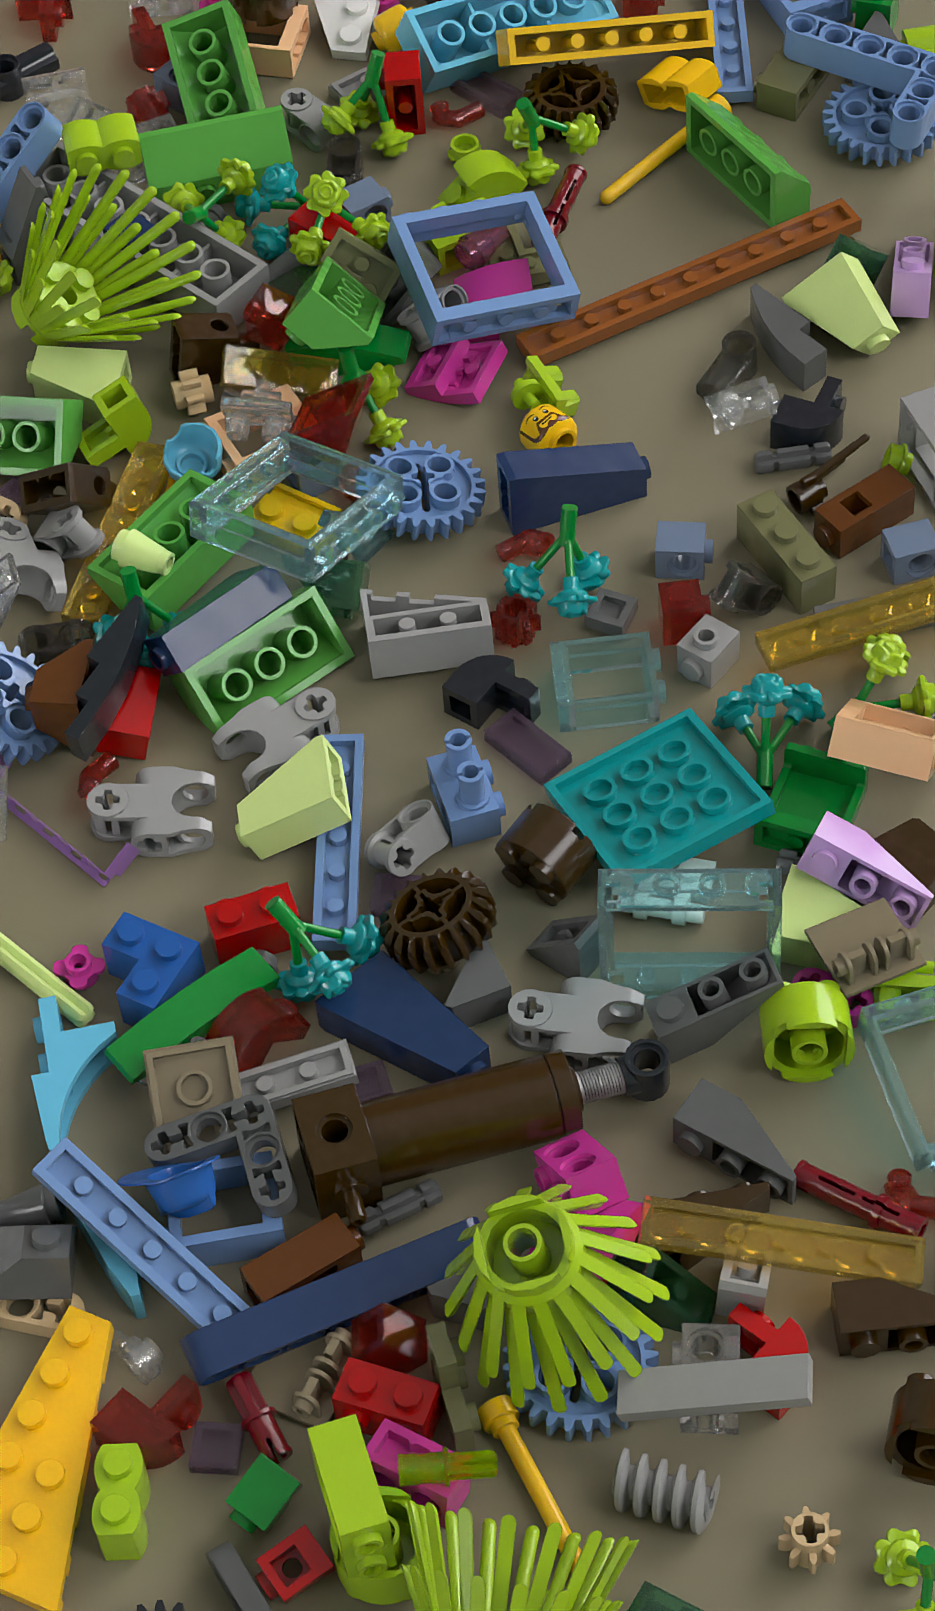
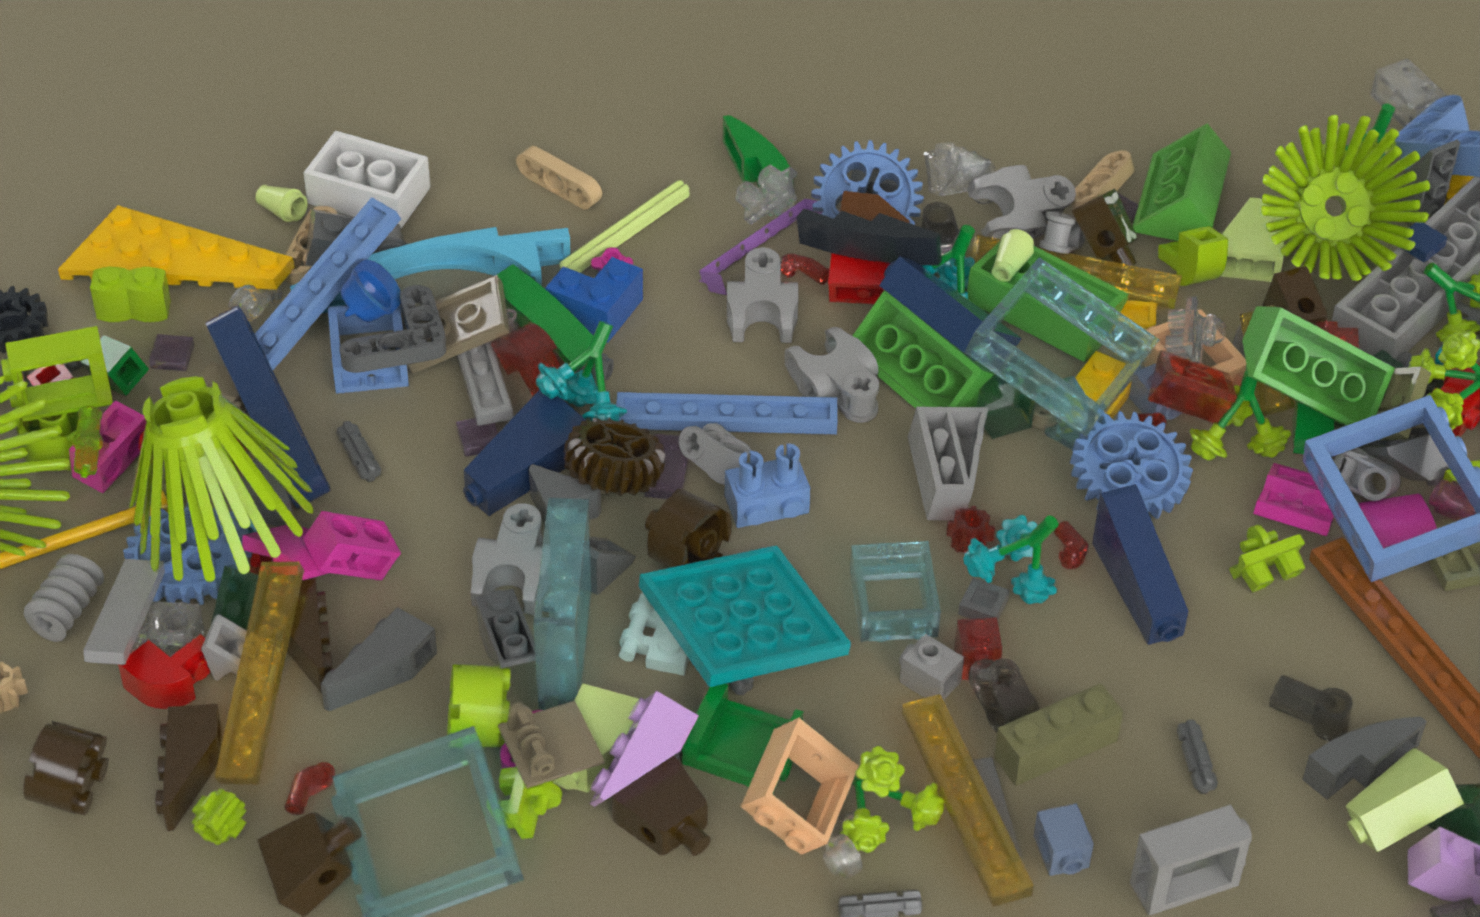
camera: 85 degrees right, 5 degrees down
(153, 1429) = (189, 304): clear red brick -> none
(192, 391) = (1242, 301): tan gear -> none
(193, 448) = (1150, 302): medium azure hair -> none
(246, 923) = (636, 355): red brick -> none
(257, 1416) = (184, 366): dark red axle -> none
(295, 801) = (759, 375): yellowish green slope -> none
(303, 1259) = (308, 390): reddish brown brick -> none
(373, 1143) = (402, 425): dark brown piece -> none
(484, 686) = (887, 506): black brick -> none
(527, 746) = (829, 543): clear purple tile -> none
(547, 428) = (1210, 558): yellow head -> none
(682, 550) = (1061, 655): sand blue brick -> none
(742, 404) = (1246, 700): clear hips -> none
(767, 691) = (838, 680): teal plant -> none
(810, 422) = (1240, 772): black brick -> none
(811, 490) = (1147, 765): dark brown plant -> none
(863, 511) = (1114, 801): reddish brown brick -> none
(874, 1209) = (301, 753): dark red pin -> none

